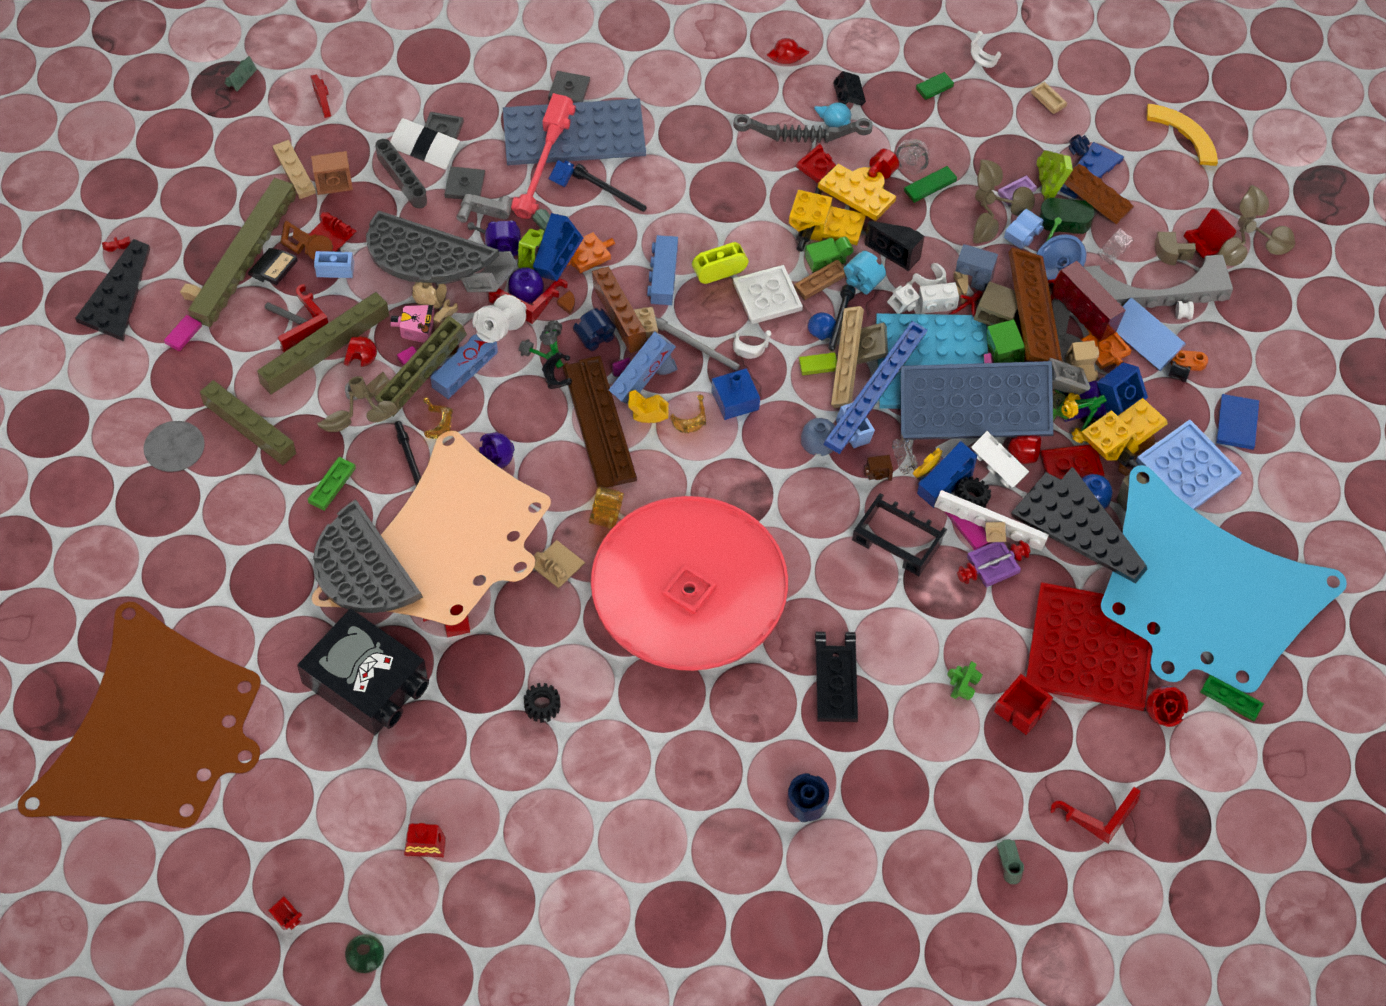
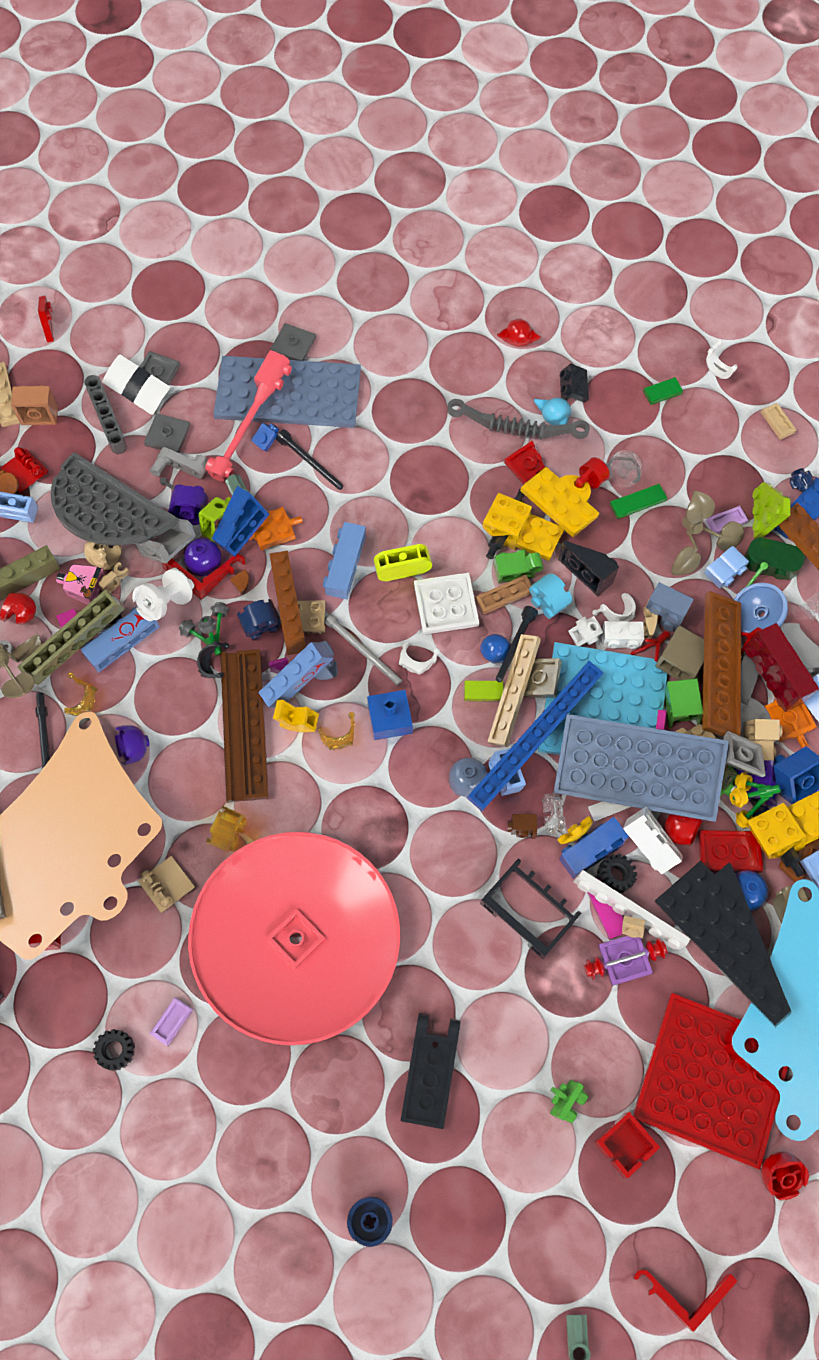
camera: 10 degrees right, 10 degrees up
(589, 674) = (171, 1021): none -> lavender tile

